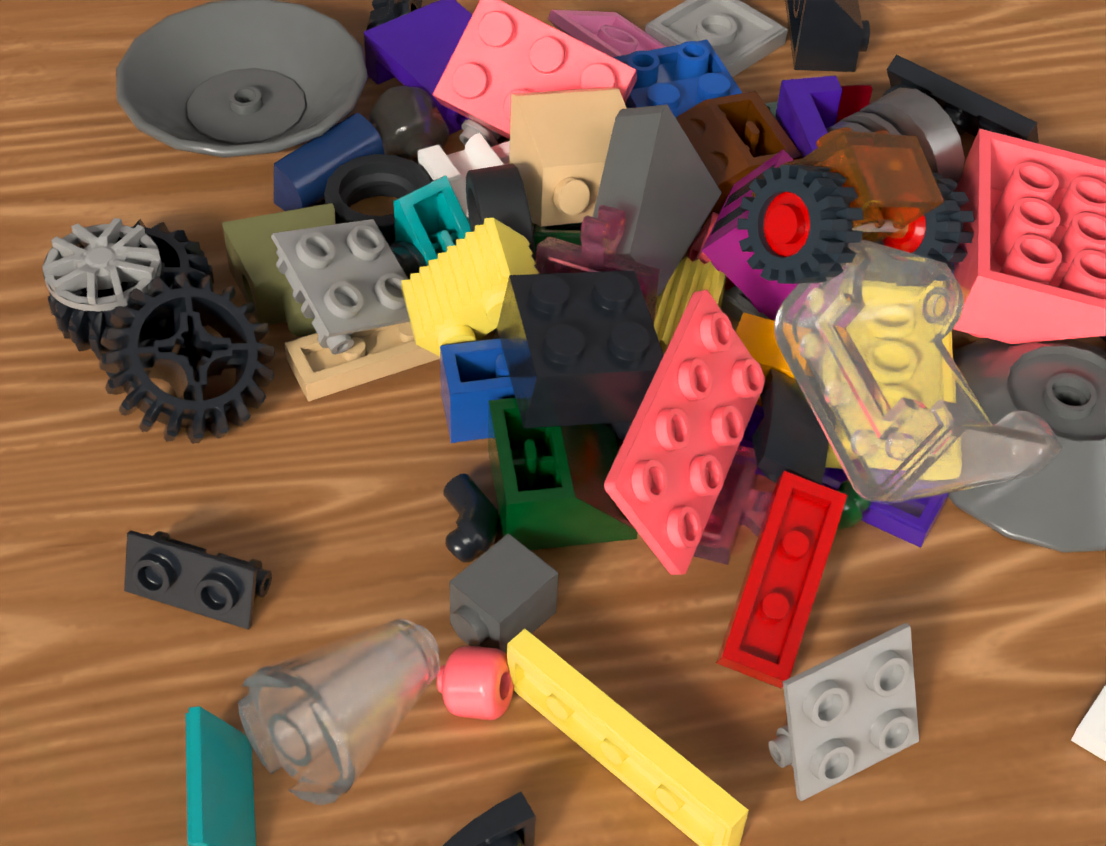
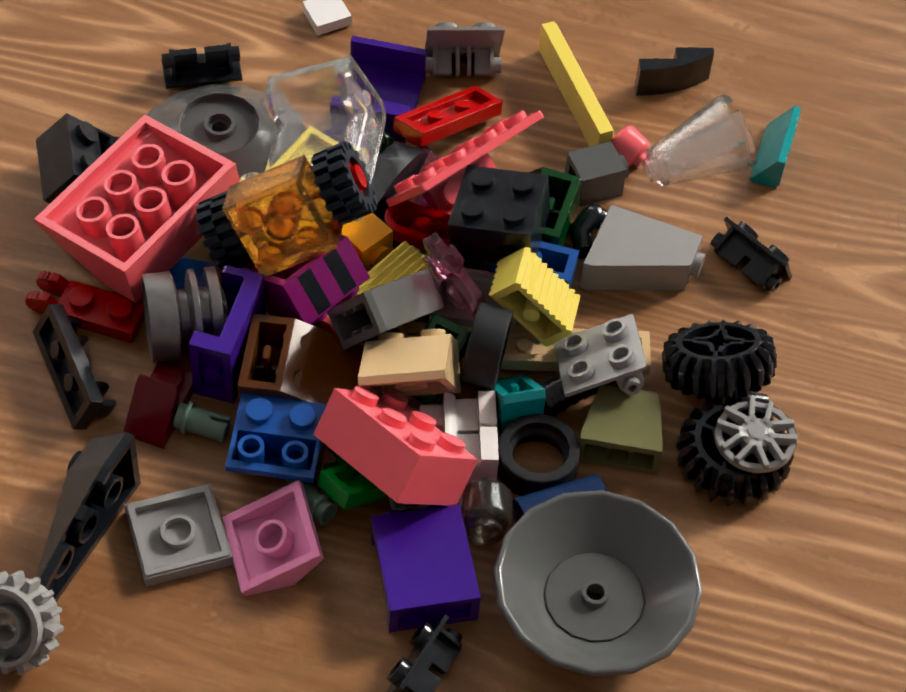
camera: 155 degrees left, 5 degrees up
(365, 496) = (641, 254): none -> light grey slope
(914, 574) = (395, 74): none -> dark purple panel

